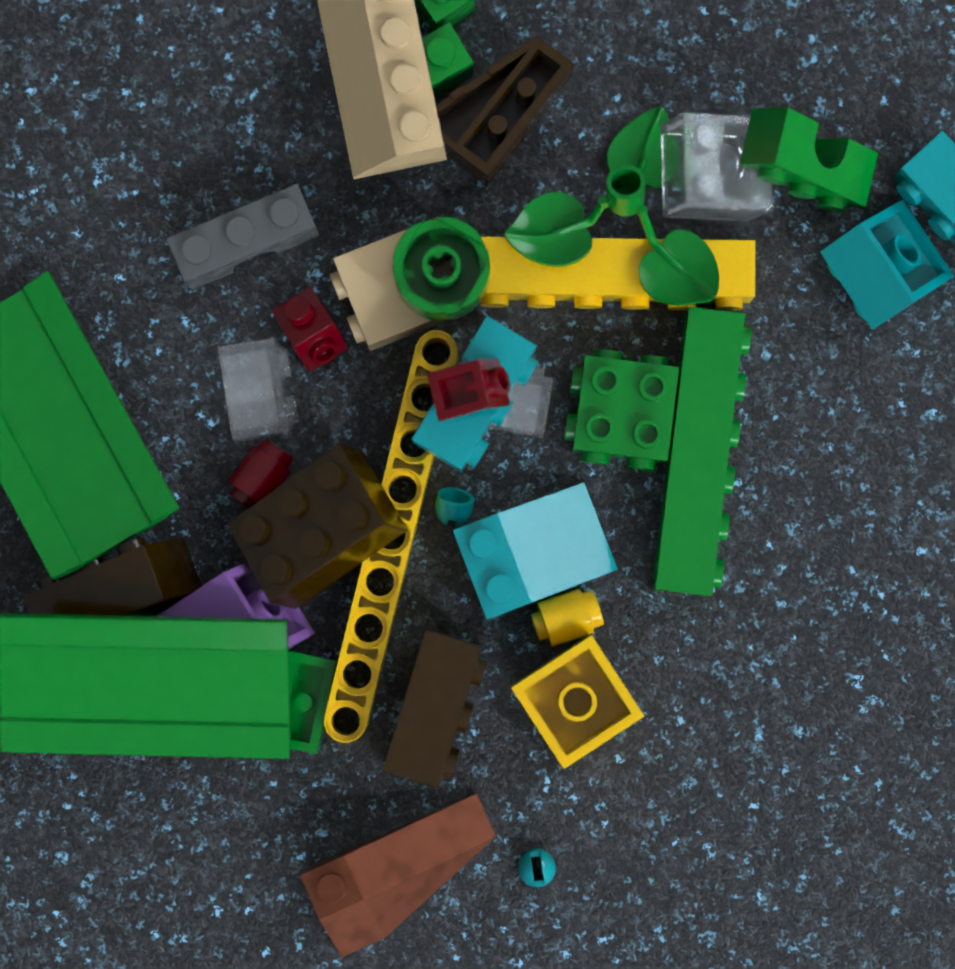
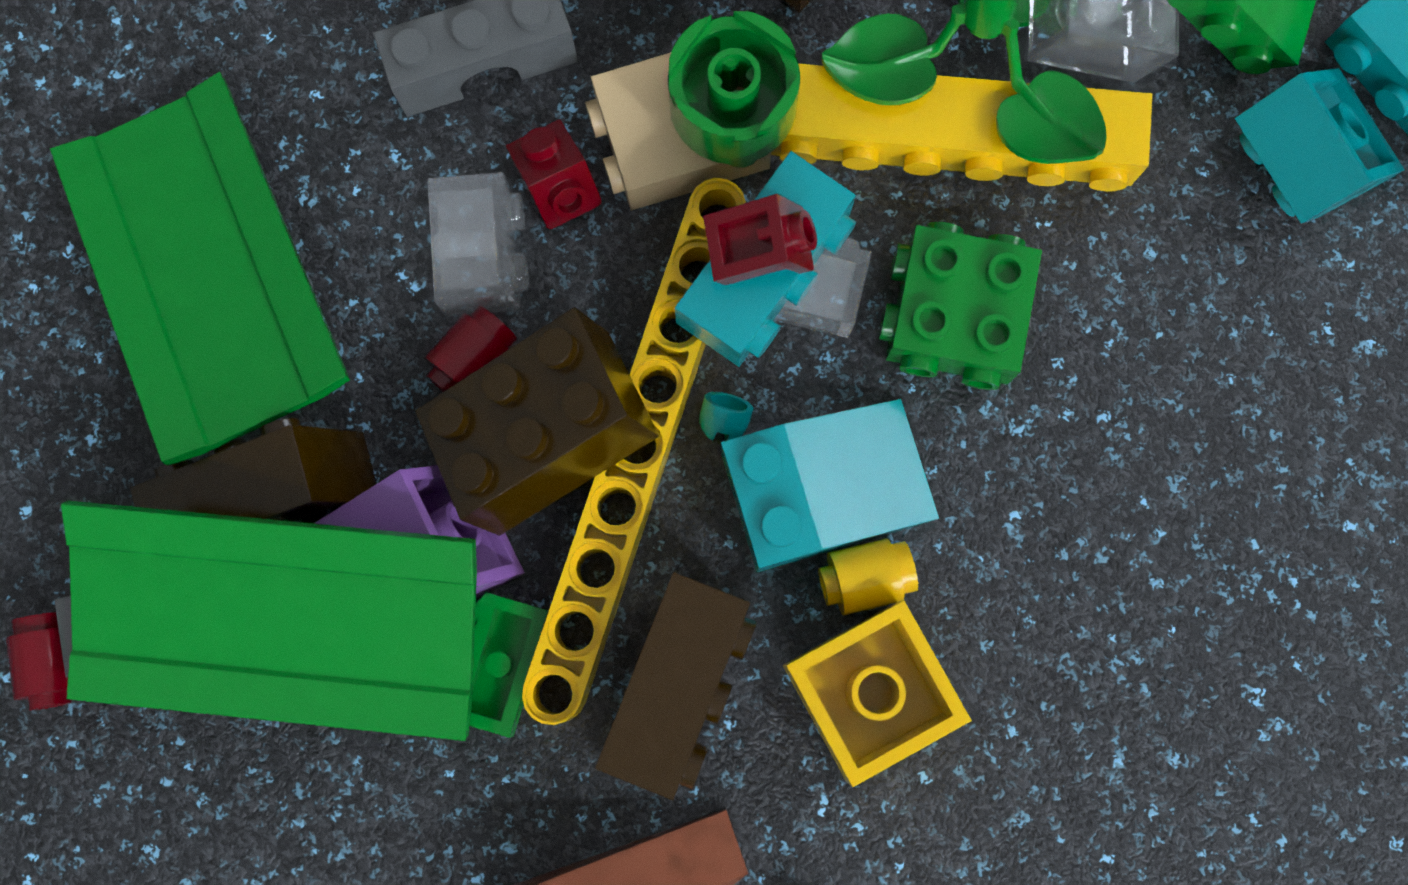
camera: 10 degrees right, 5 degrees down
(699, 452) = (1058, 393): green brick -> none

